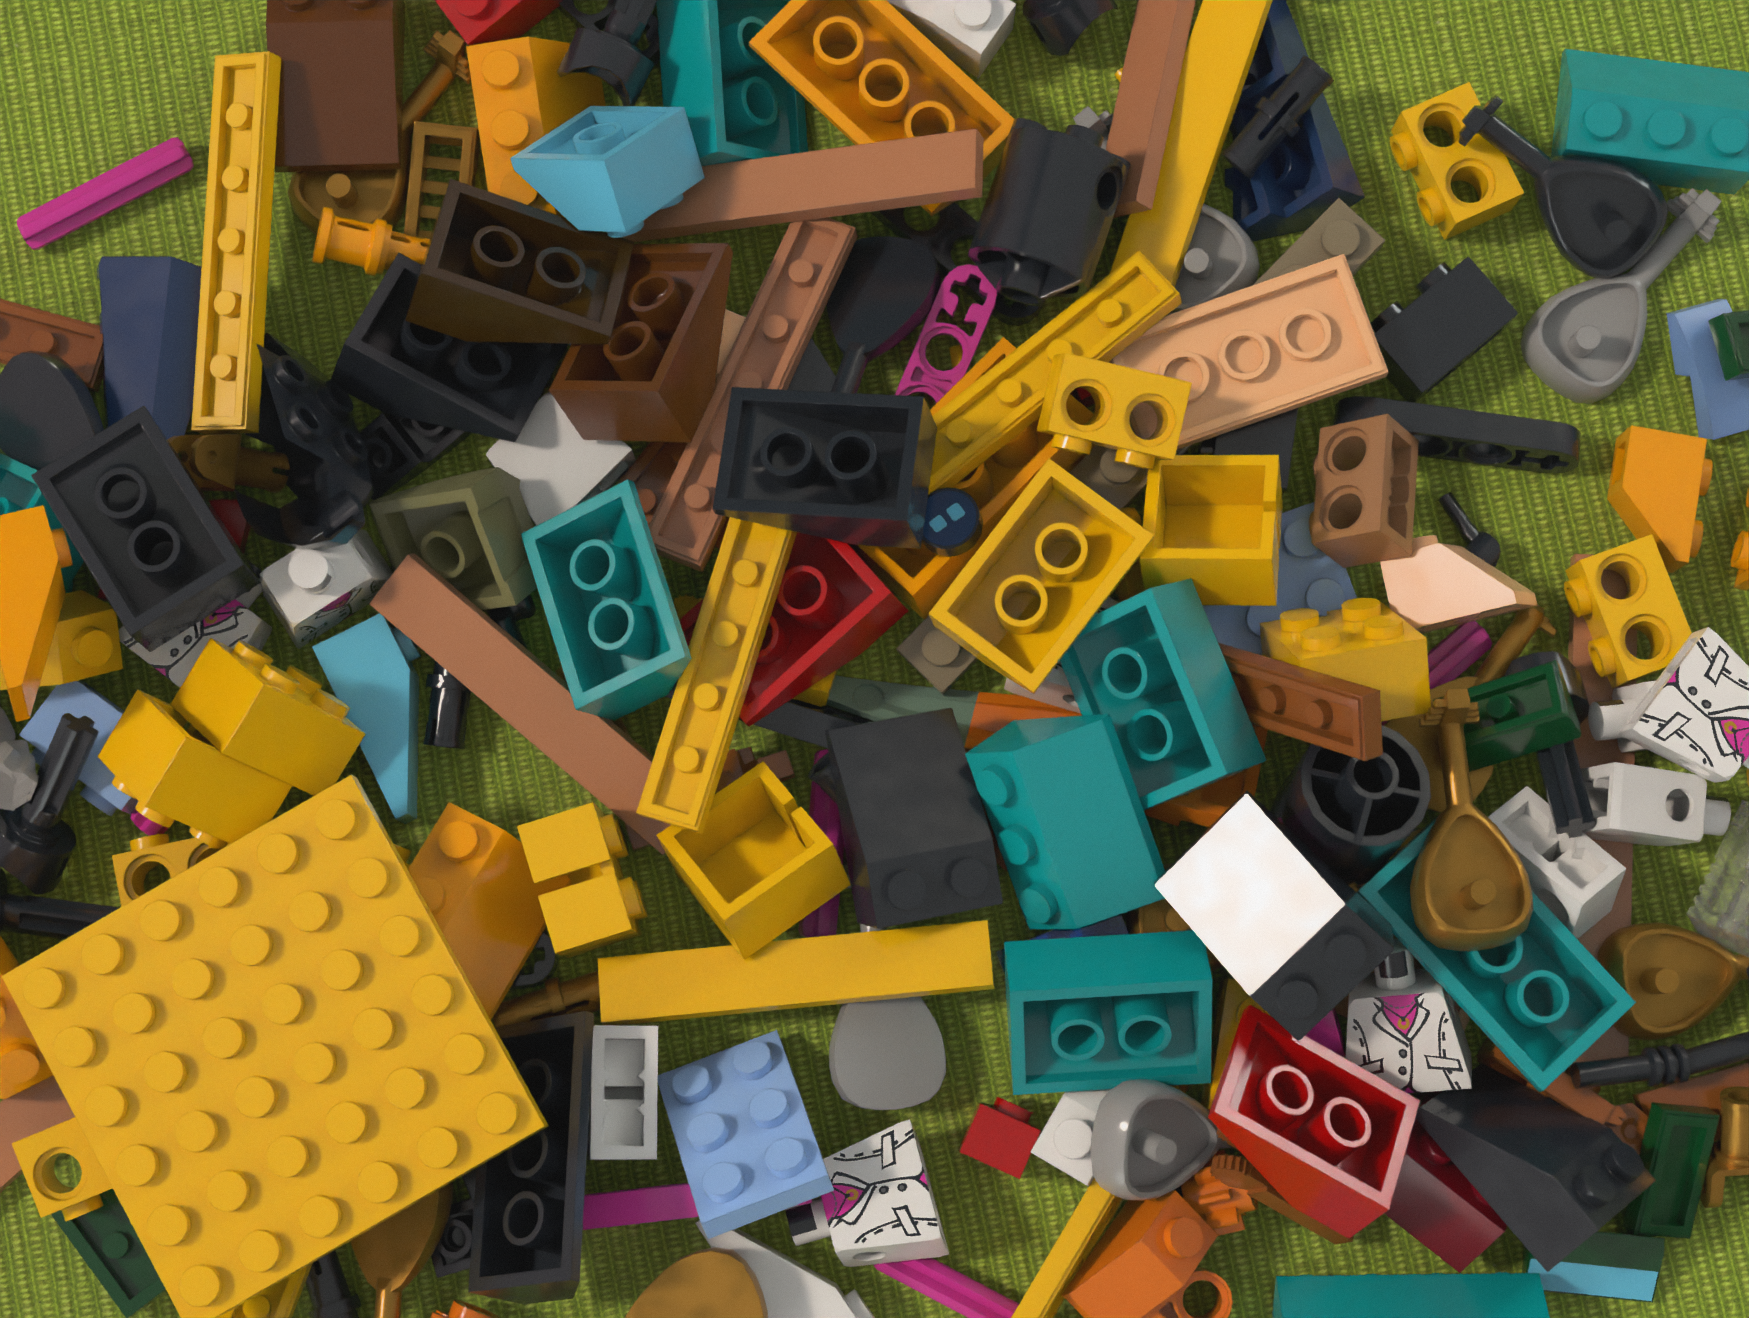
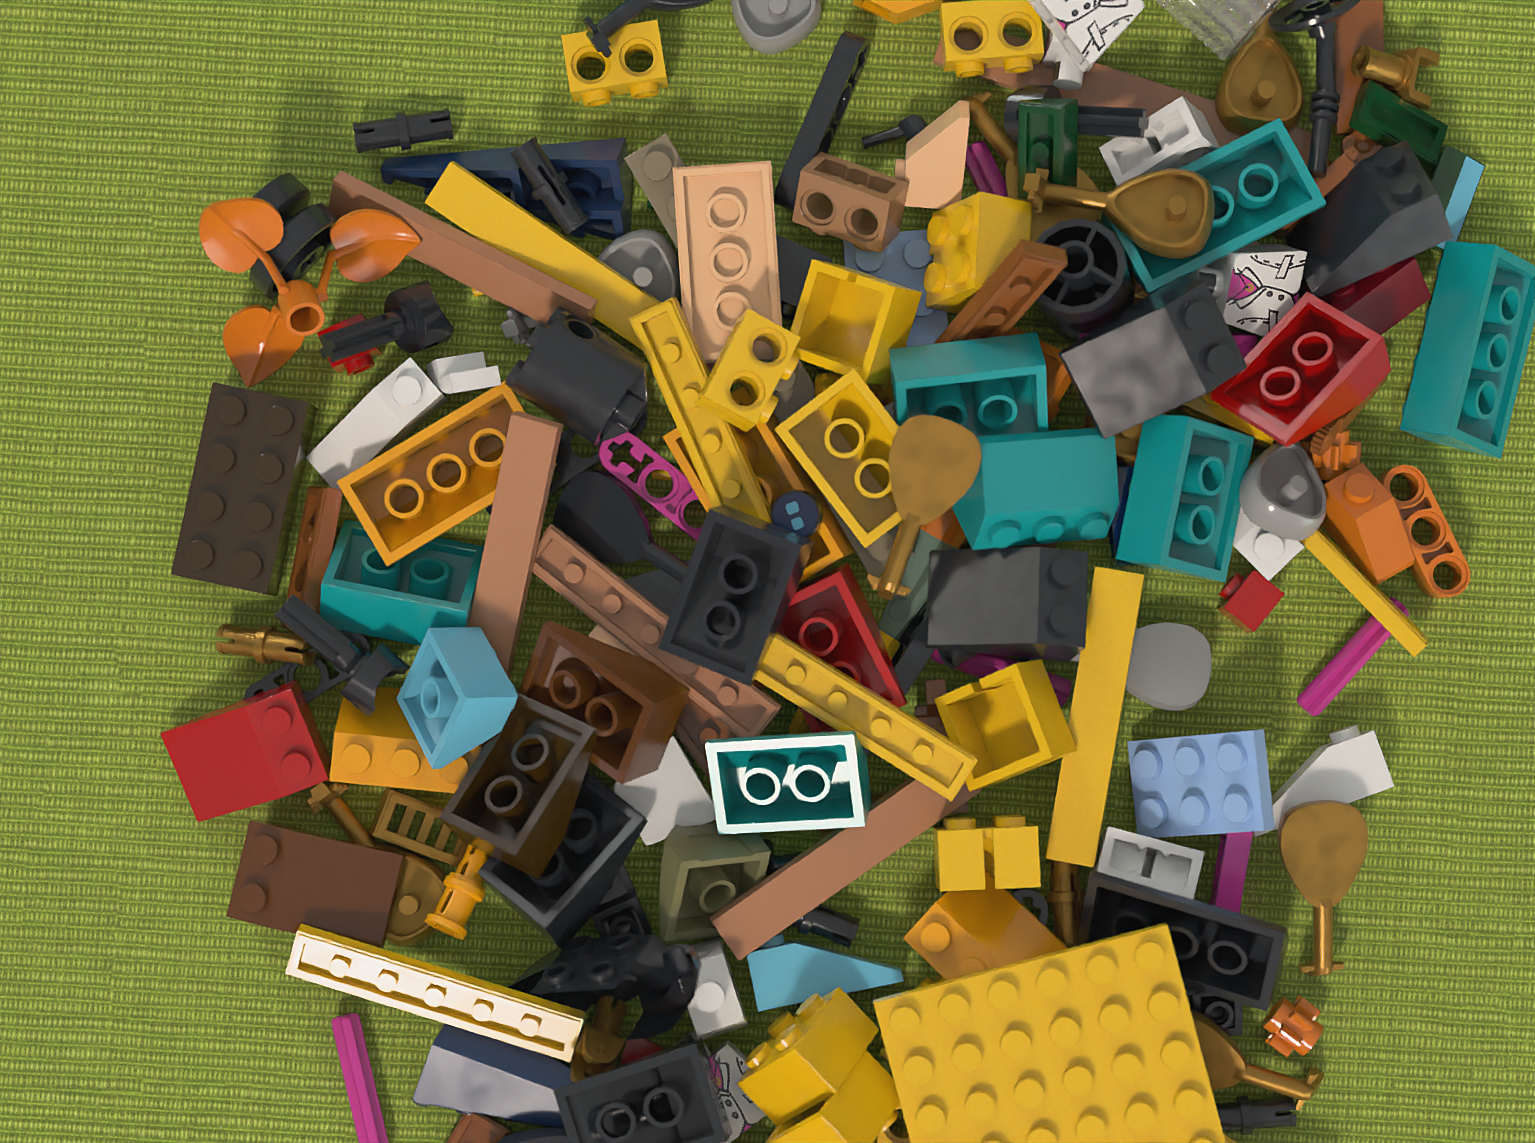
camera: 70 degrees left, 5 degrees up
(878, 1204) = (1275, 698): white torso -> none
(1015, 73) = (463, 373): none -> white slope
(1048, 663) = (929, 472): none -> pearl gold piece
(1440, 328) = (739, 110): black brick -> none
(1652, 805) = (1139, 62): white torso -> none

